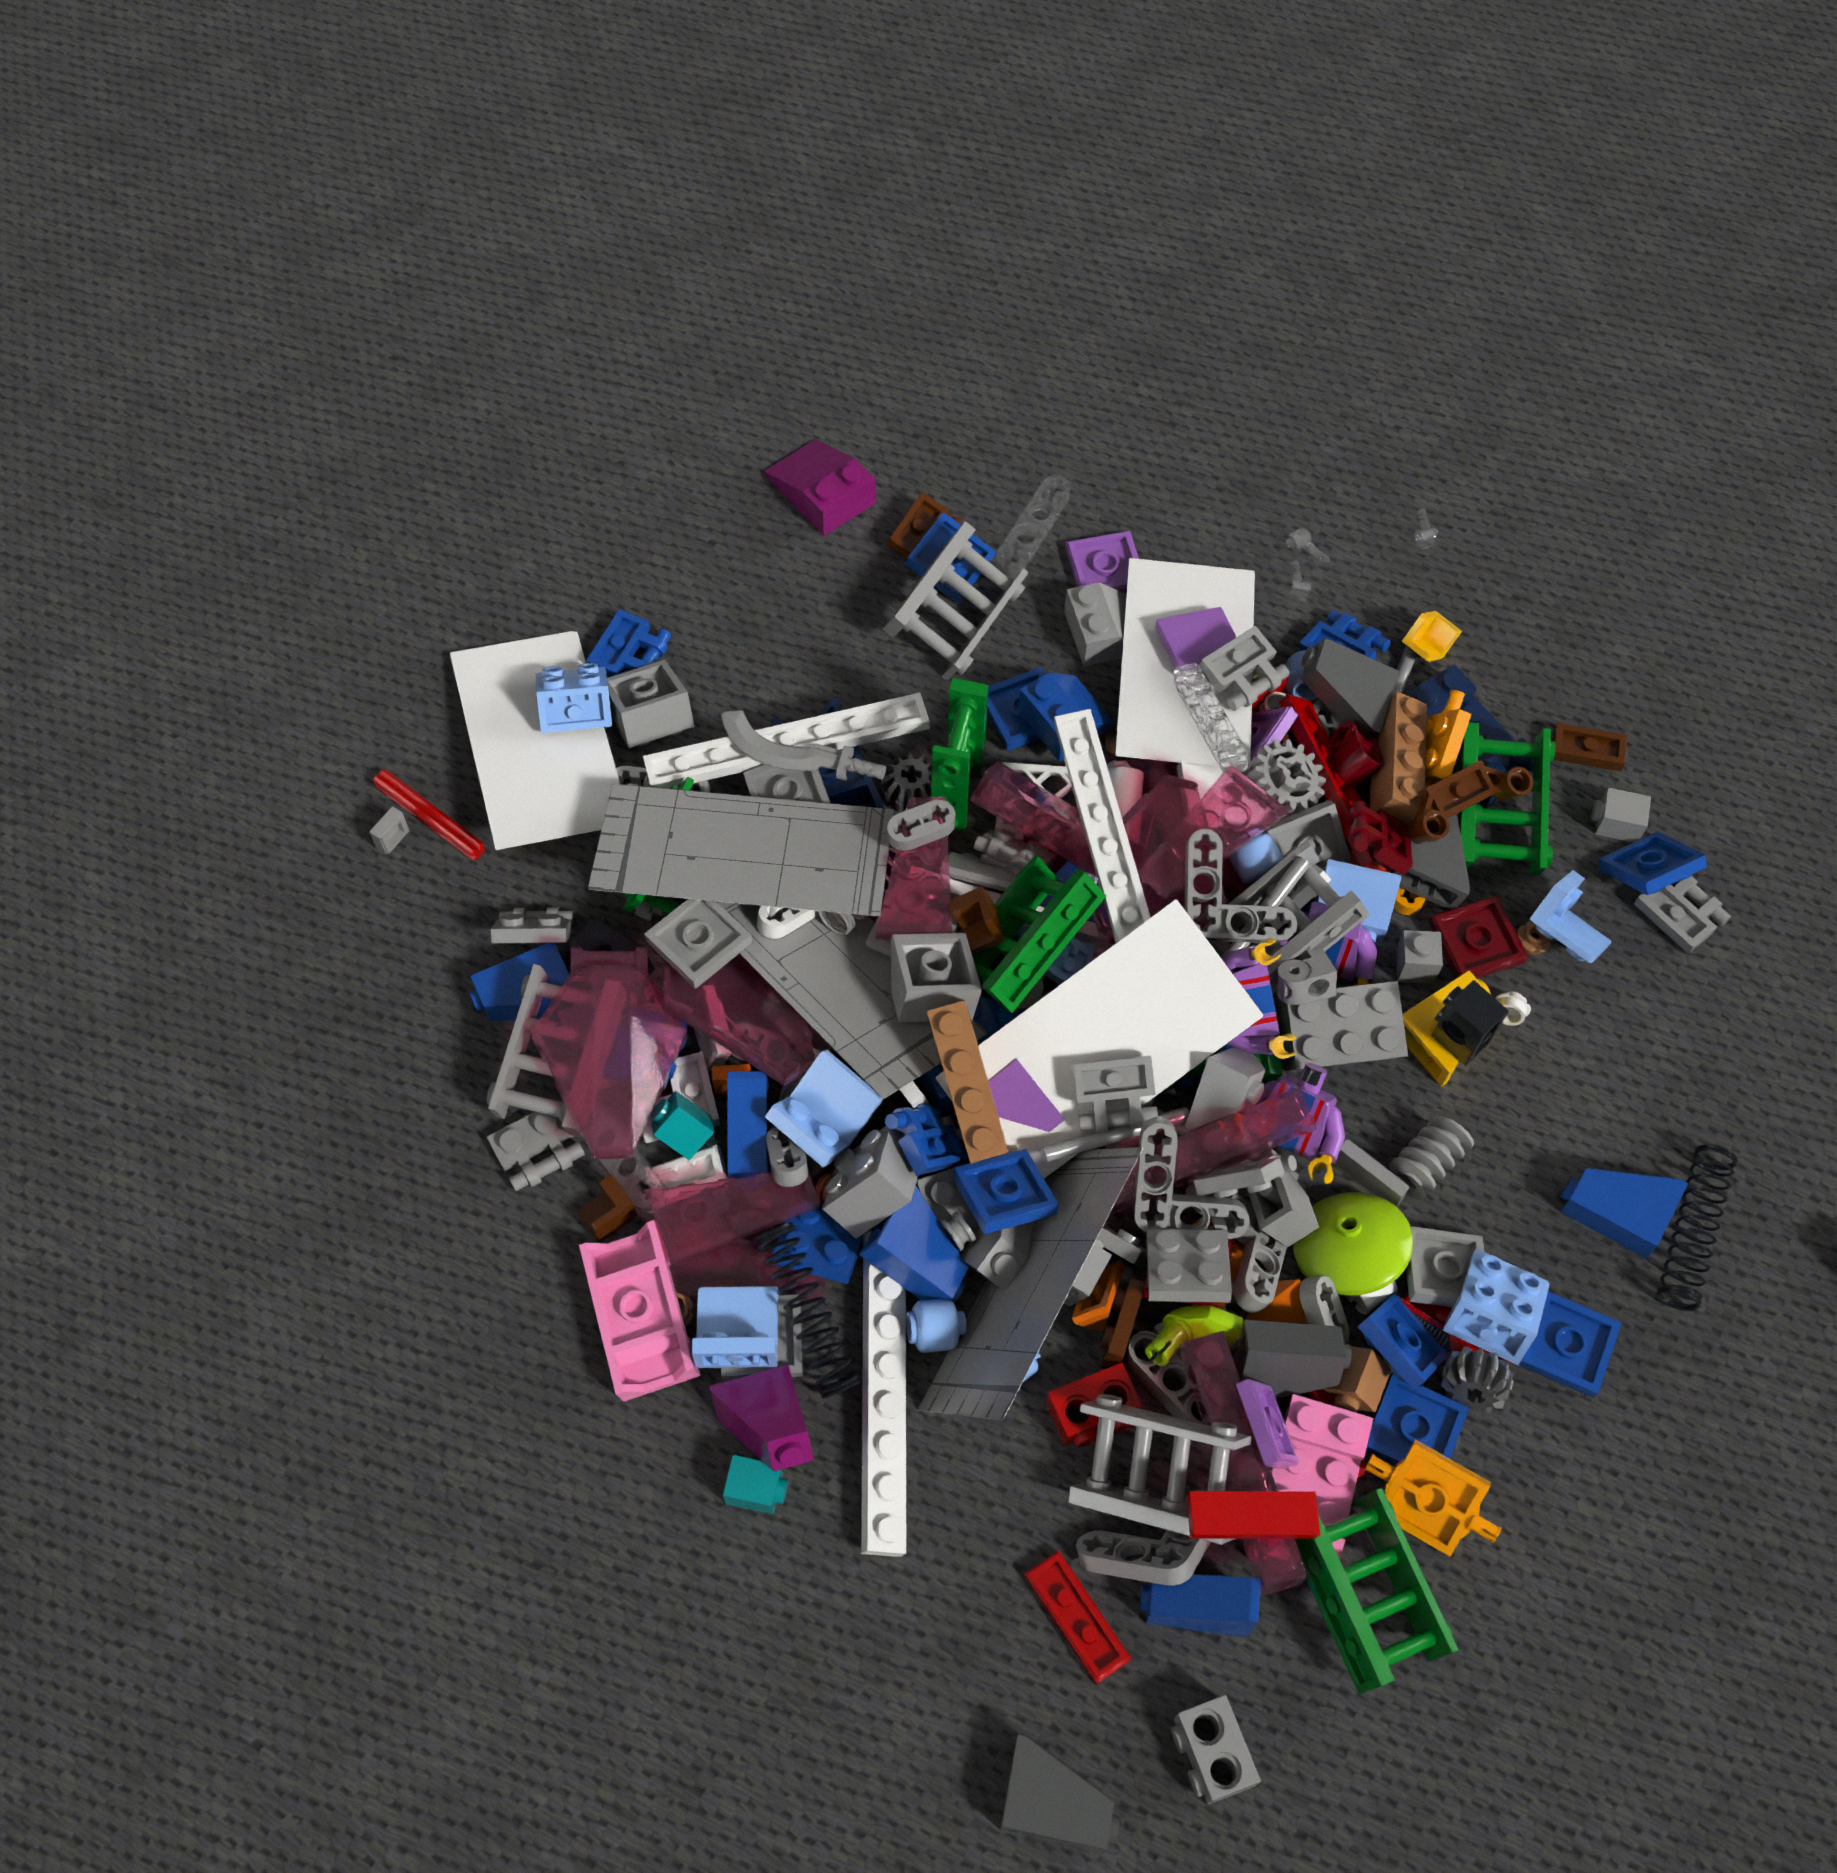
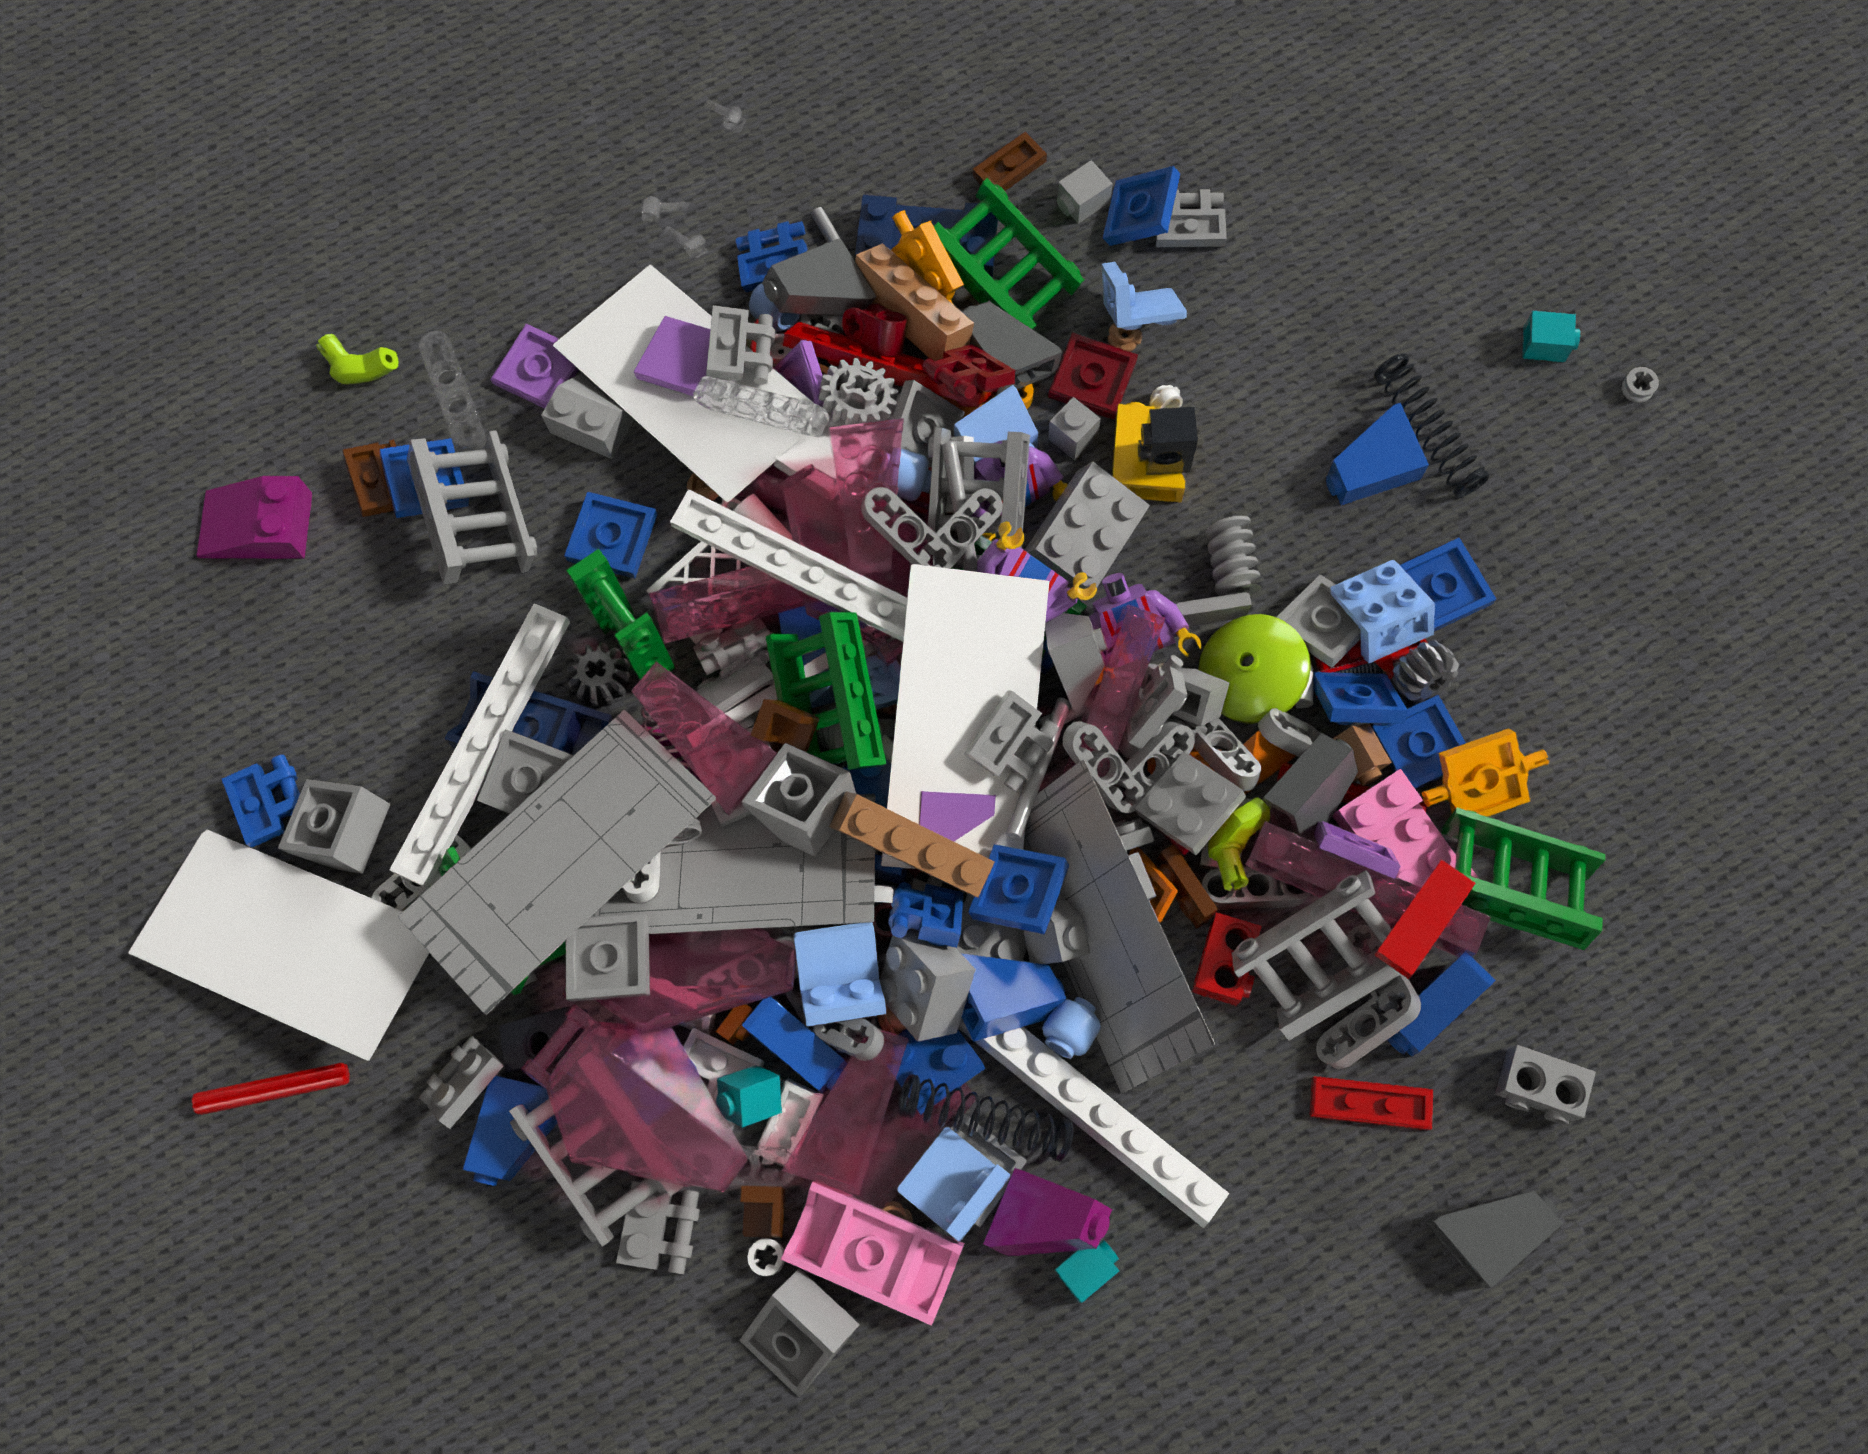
camera: 45 degrees left, 10 degrees up
(389, 830) = (258, 1135): light grey tile -> none
(537, 1304) = (798, 1332): none -> light grey slope
(563, 1233) = (763, 1244): none -> white bush
(573, 698) = (276, 883): light blue bracket -> none
(795, 758) = (502, 751): light grey sword -> none
(920, 824) = (658, 698): light grey beam -> none
(958, 1231) = (1016, 949): light grey bush -> none
(991, 455) = (356, 368): none -> lime arm
(1055, 696) = (642, 509): blue slope -> none
(1306, 979) = (1041, 523): light grey leg -> none
(1431, 636) = (825, 189): yellow panel -> none
(1462, 791) = (983, 285): reddish brown plate -> none

